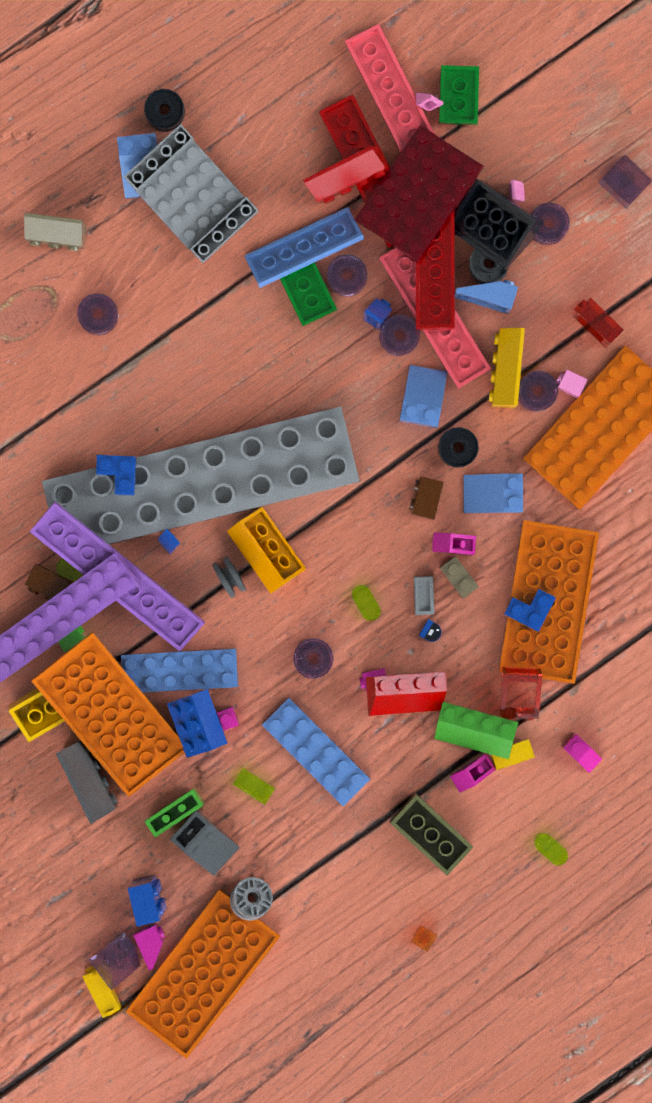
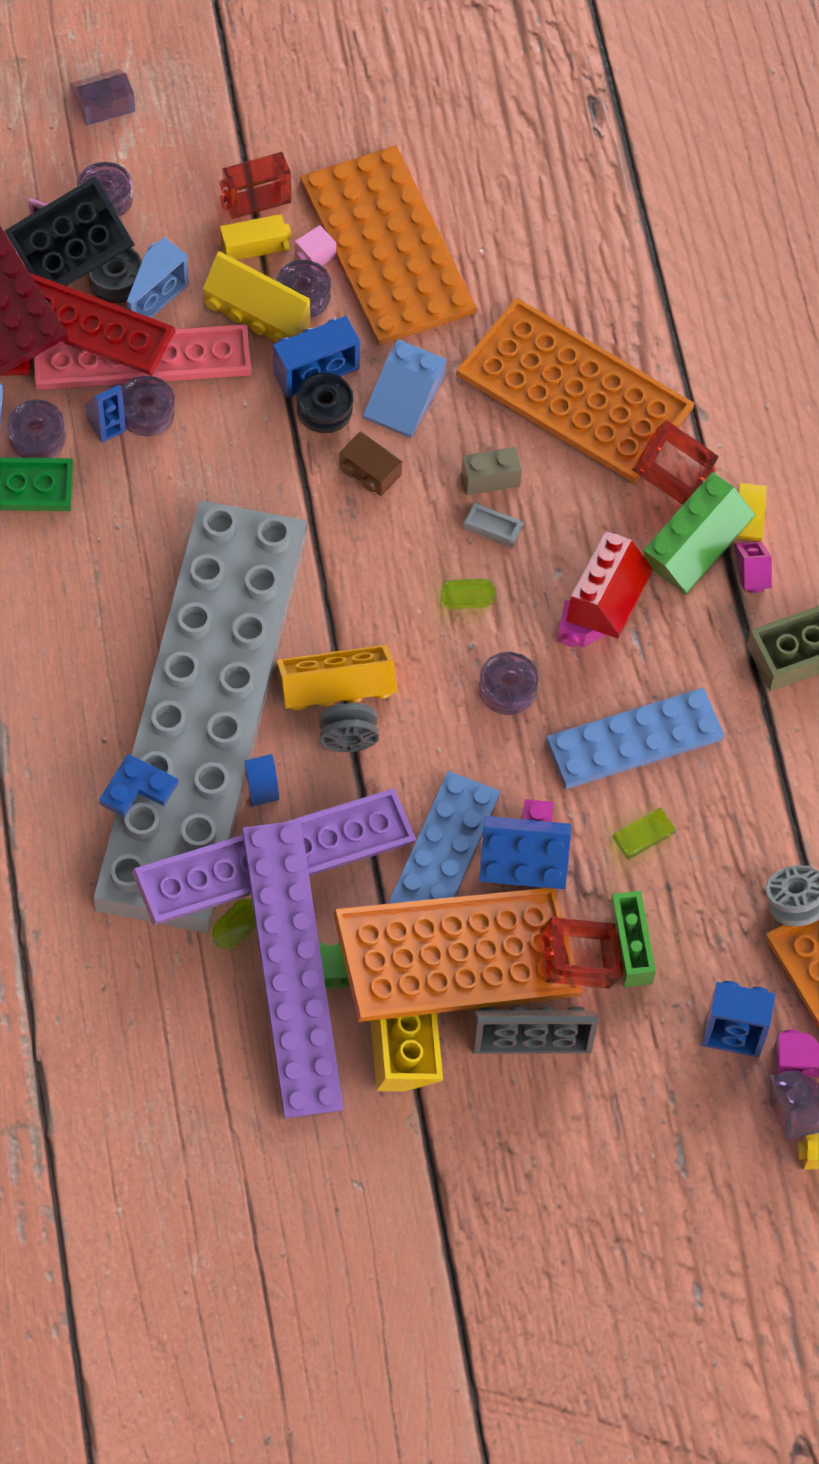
camera: 70 degrees left, 25 degrees down
(46, 582) = (233, 962): reddish brown brick -> none
(137, 772) = (554, 954): none -> clear red window
(204, 842) = (690, 923): dark grey slope -> none
(423, 396) = (241, 415): medium blue slope -> none
(431, 631) = (543, 536): tile -> none
(454, 543) = (443, 460): dark pink slope -> none
(486, 426) = (316, 350): none -> blue brick
(532, 615) = (581, 407): blue plate -> none
(560, 340) = (255, 237): none -> yellow brick
(581, 752) = (784, 434): dark pink slope -> none

